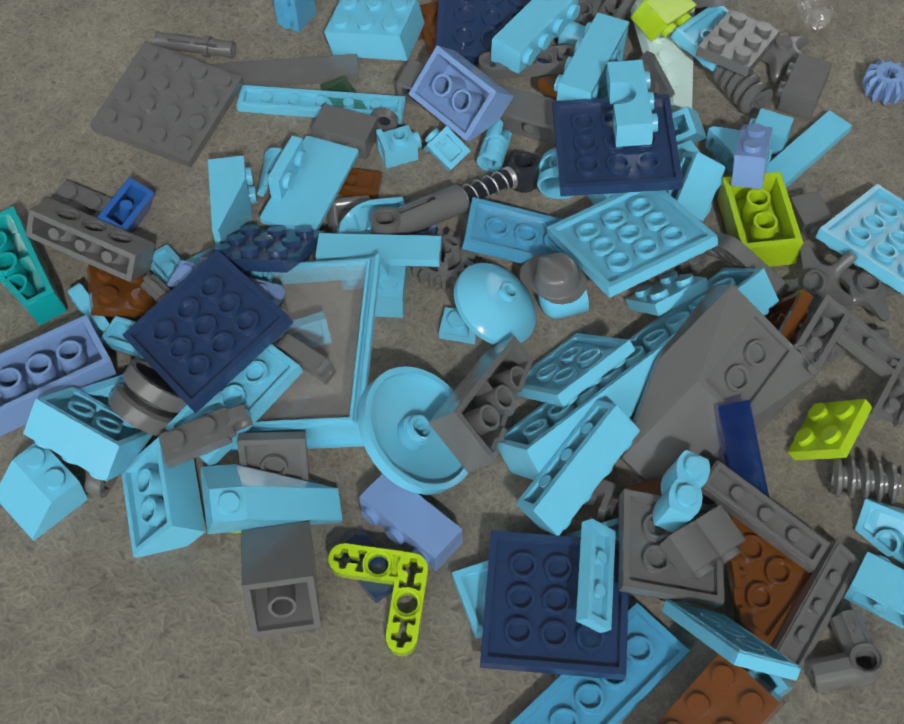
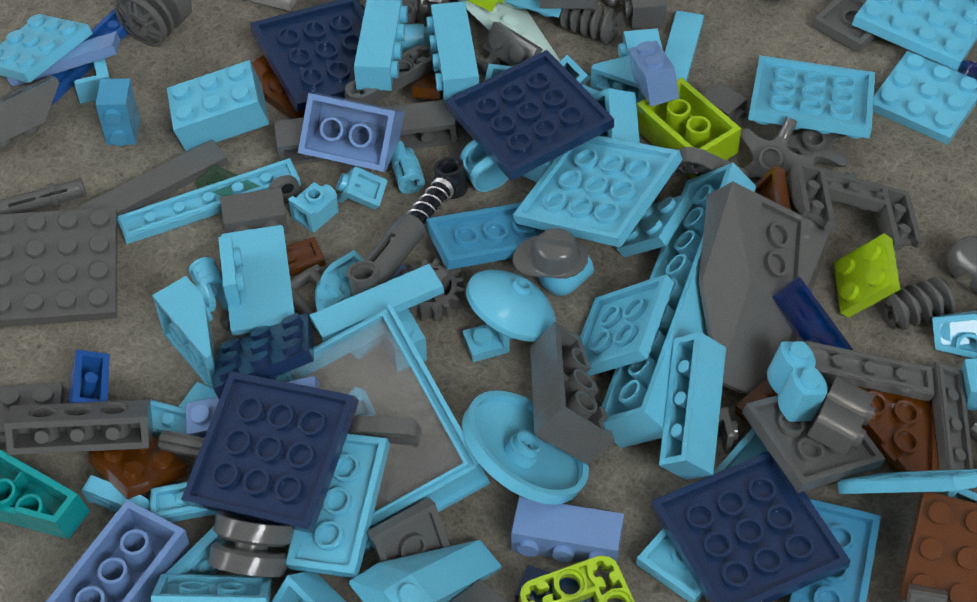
camera: 30 degrees left, 5 degrees down
(203, 434) = (334, 548): dark grey hinge -> none
(596, 576) = (772, 489): medium azure plate -> none
(632, 103) = (535, 80): medium azure arch -> none

